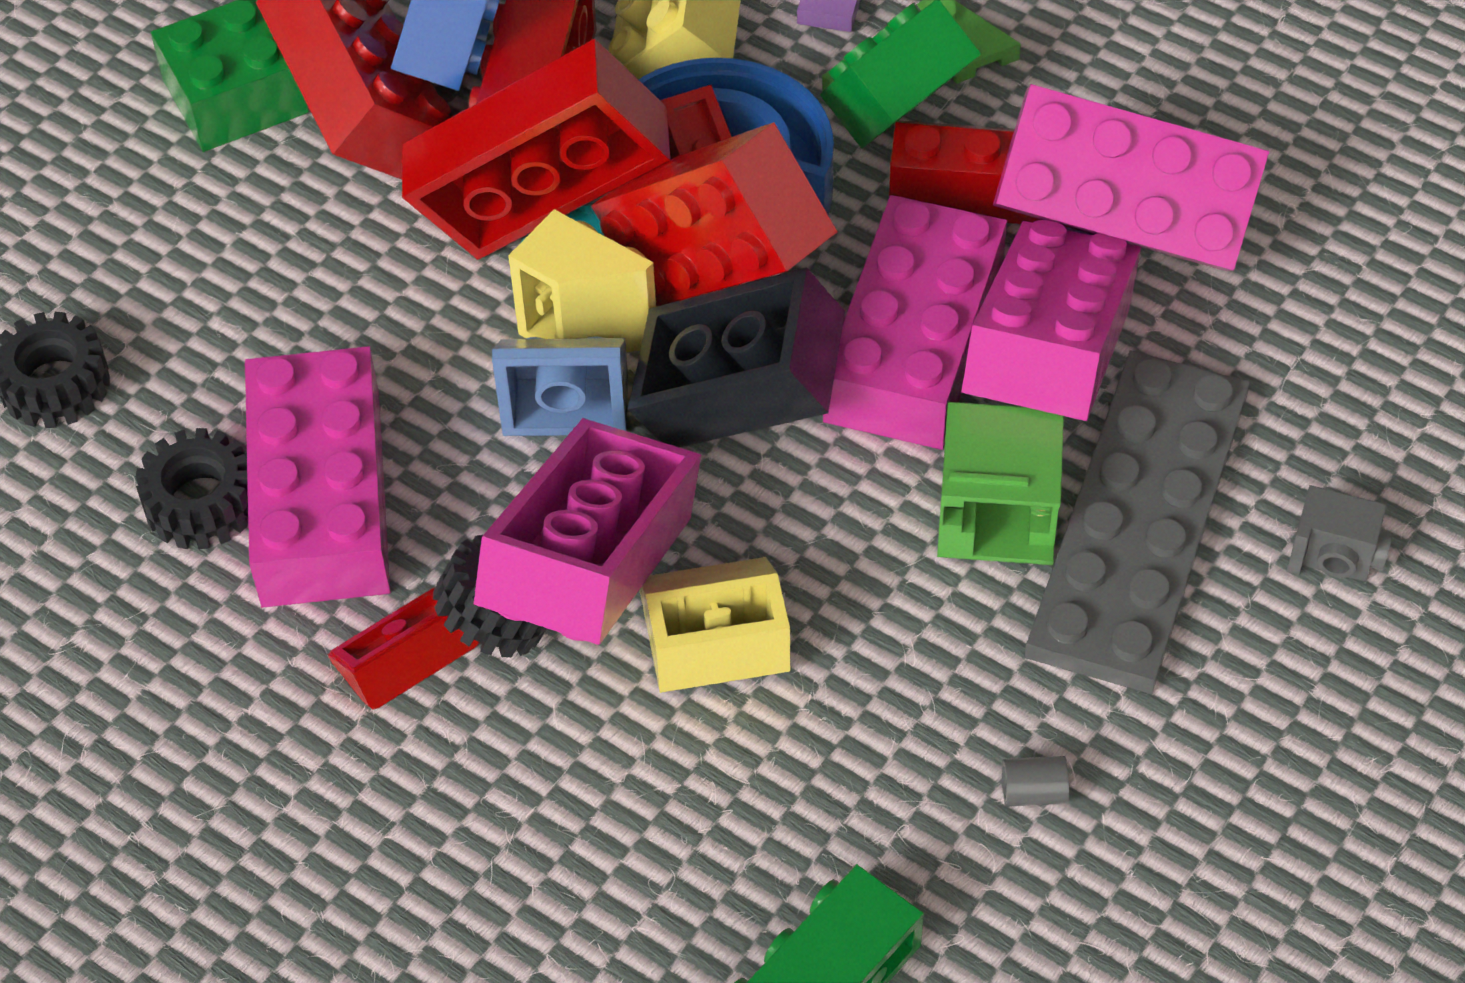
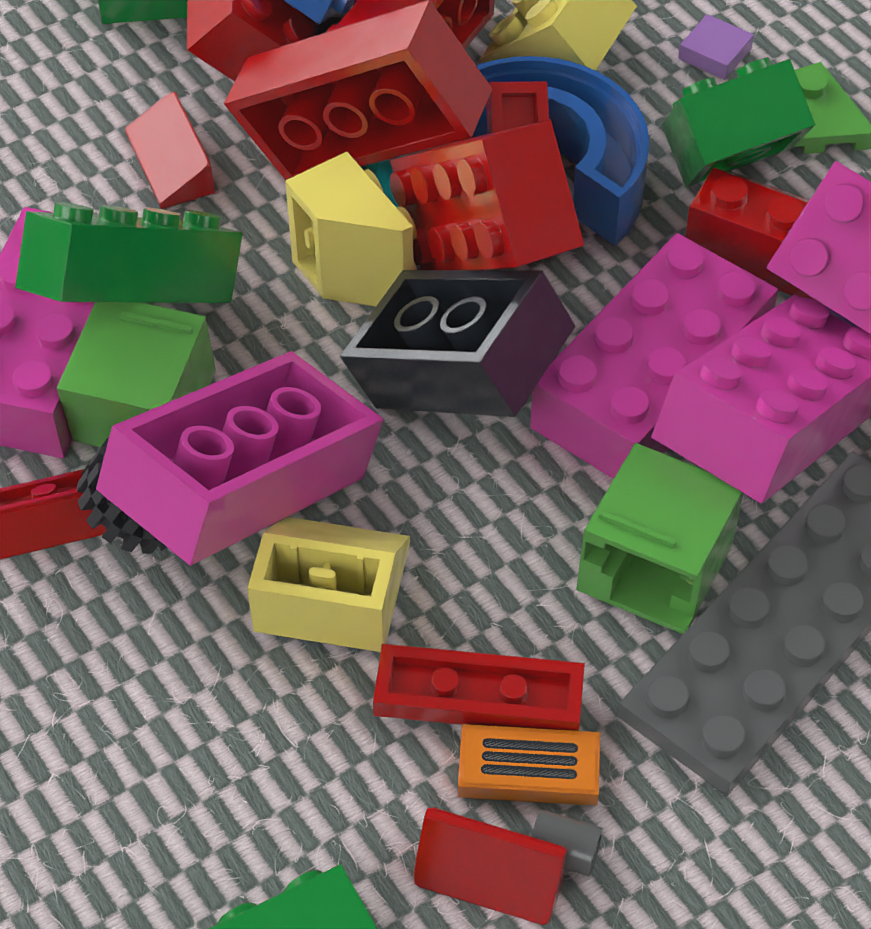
camera: 20 degrees right, 0 degrees up
(348, 262) = (170, 153): none -> slope
(391, 374) = (126, 256): none -> green brick
(435, 486) = (131, 363): none -> bright green piece
(557, 382) = (289, 310): medium blue slope -> none
(896, 674) = (477, 688): none -> red plate
(969, 725) = (529, 765): none -> orange tile
(979, 823) = (489, 866): none -> red slope

